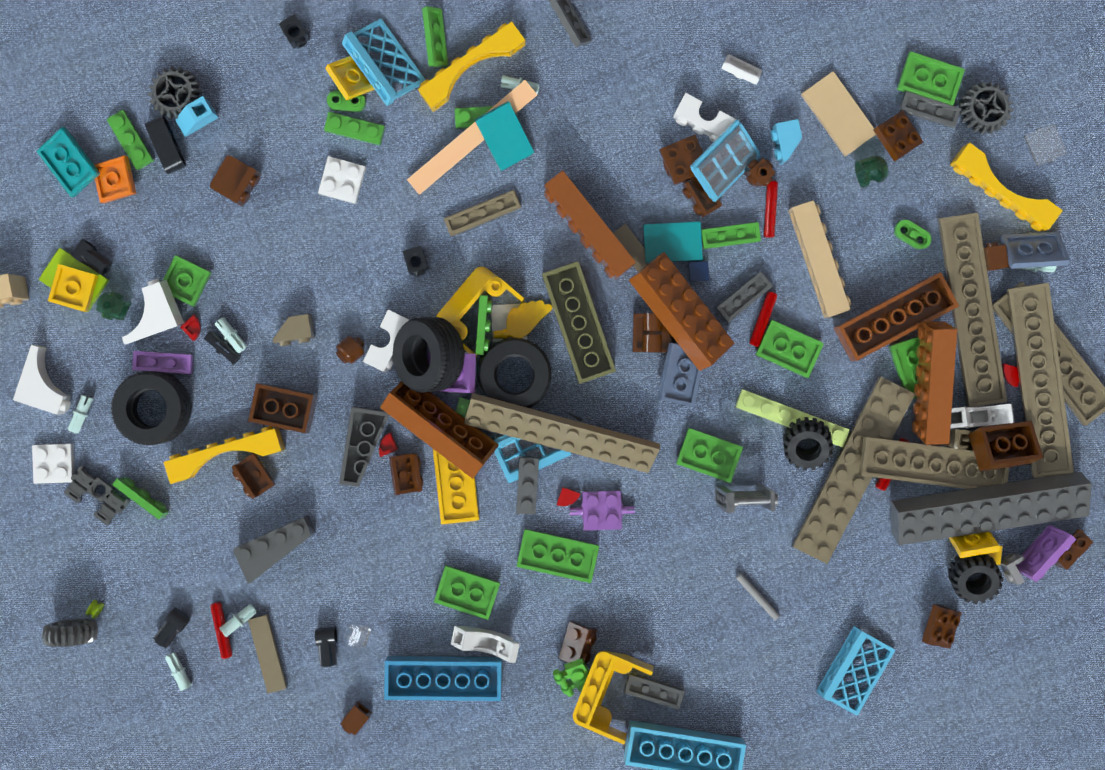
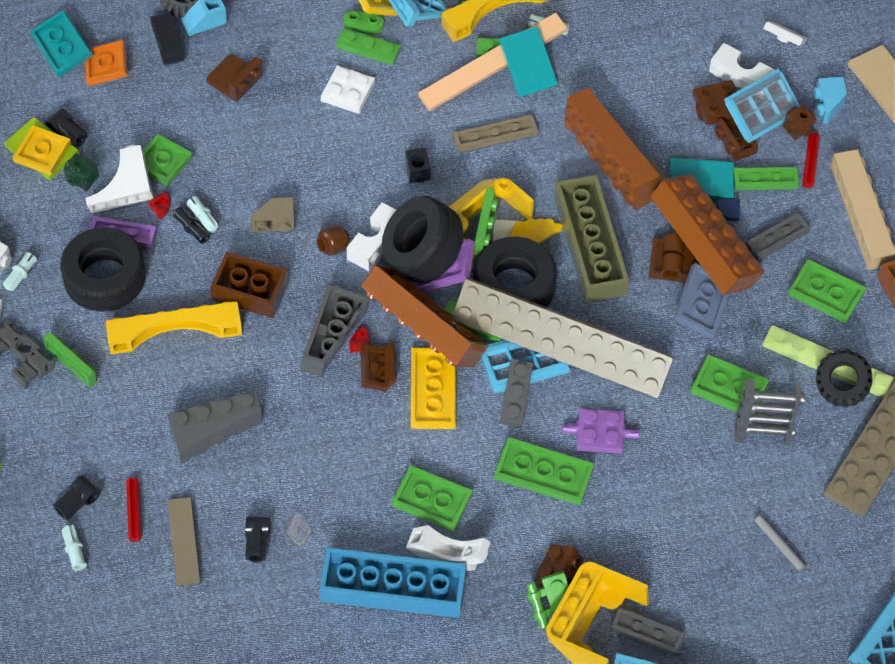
camera: 10 degrees right, 30 degrees down
(130, 140) = (130, 32): bright green plate -> none
(238, 620) = (155, 497): light aqua axle -> none
(253, 476) = (203, 351): reddish brown bracket -> none
(355, 718) = (278, 621): reddish brown brick -> none
(567, 497) = (561, 413): red tile -> none
(763, 319) = (798, 260): red axle -> none

